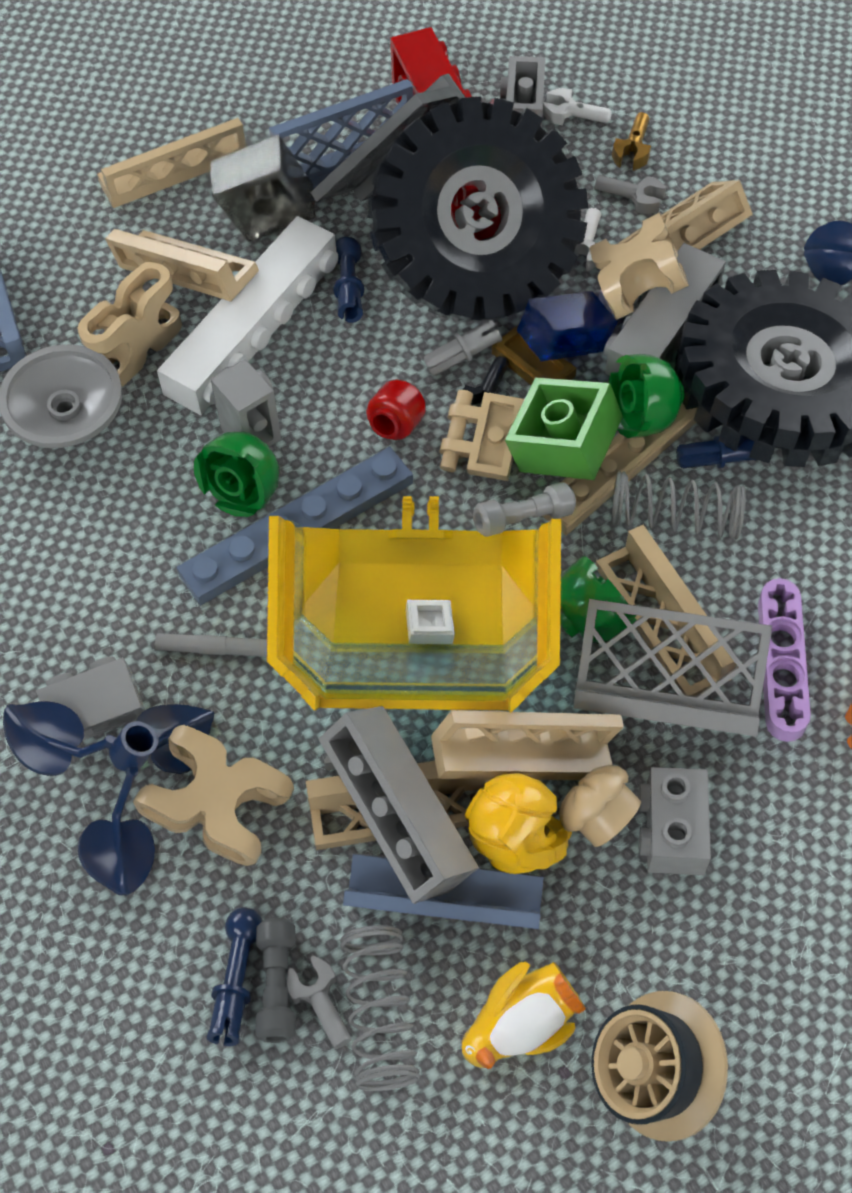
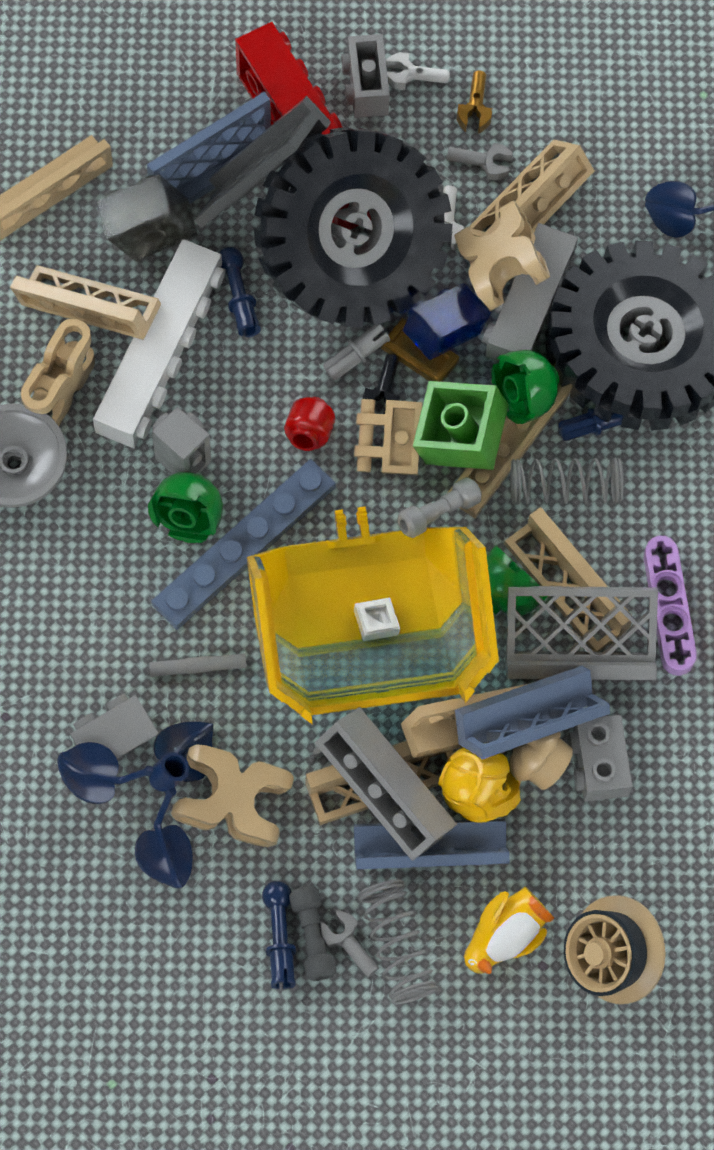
camera: 15 degrees left, 10 degrees up
(590, 745) = (529, 713): none -> sand blue fence

